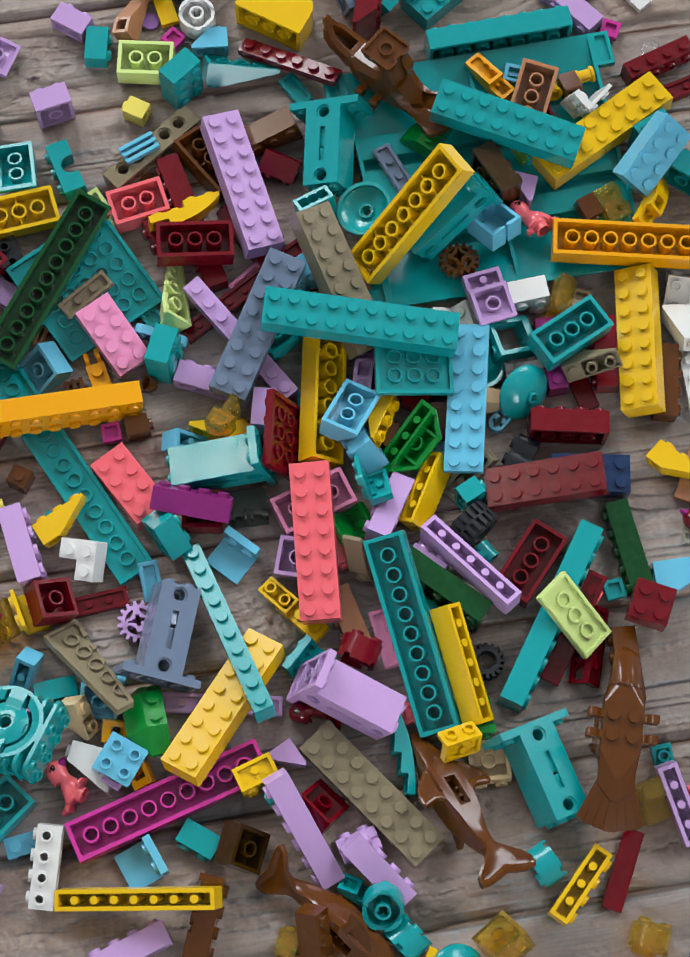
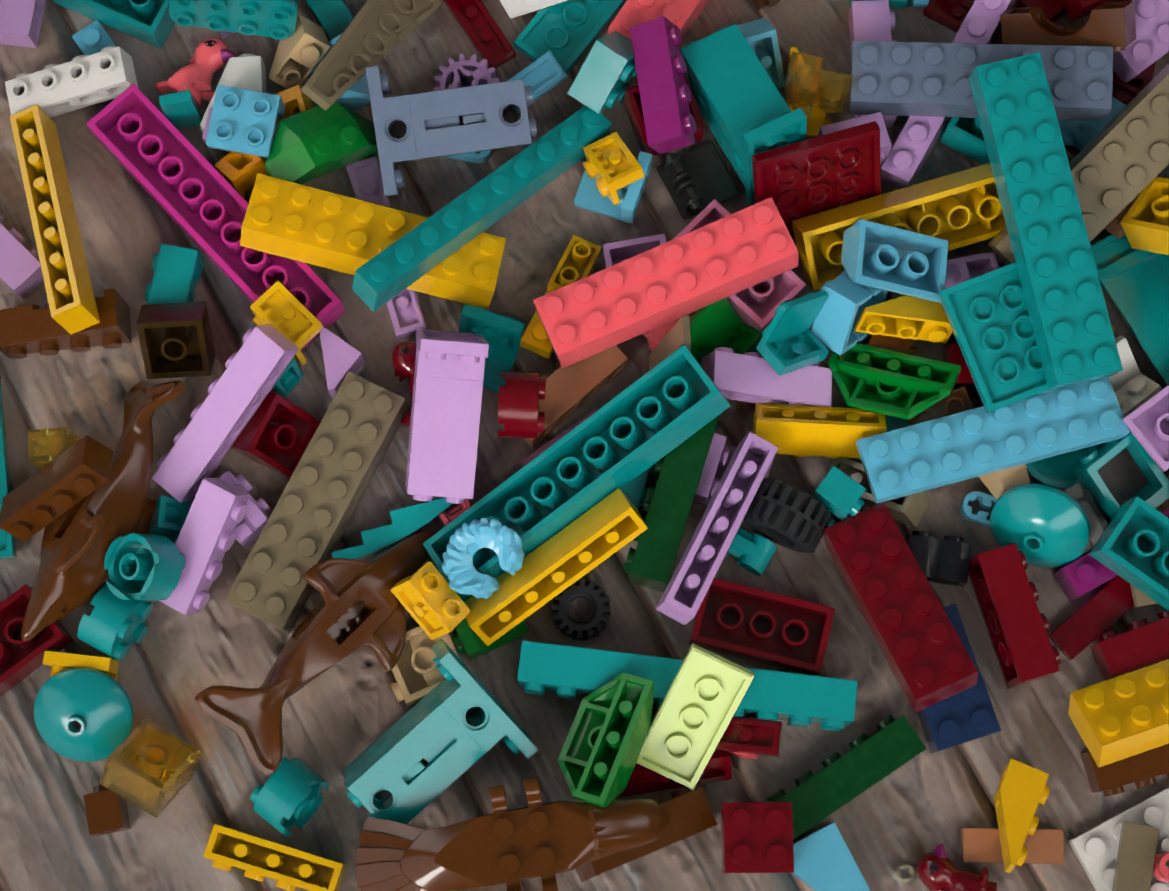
camera: 75 degrees right, 5 degrees up
(90, 799) = (181, 109): none -> teal tile
(142, 863) = (118, 216): medium azure bracket -> none
(227, 550) = (611, 165): none -> yellow bracket
(234, 288) = (1108, 26): none -> reddish brown arch
(433, 705) = (462, 547): none -> medium azure piece
(573, 665) = (607, 739): none -> green wedge
(590, 363) = (1129, 615): dark tan slope -> none
(614, 589) = (769, 776): teal plate -> none

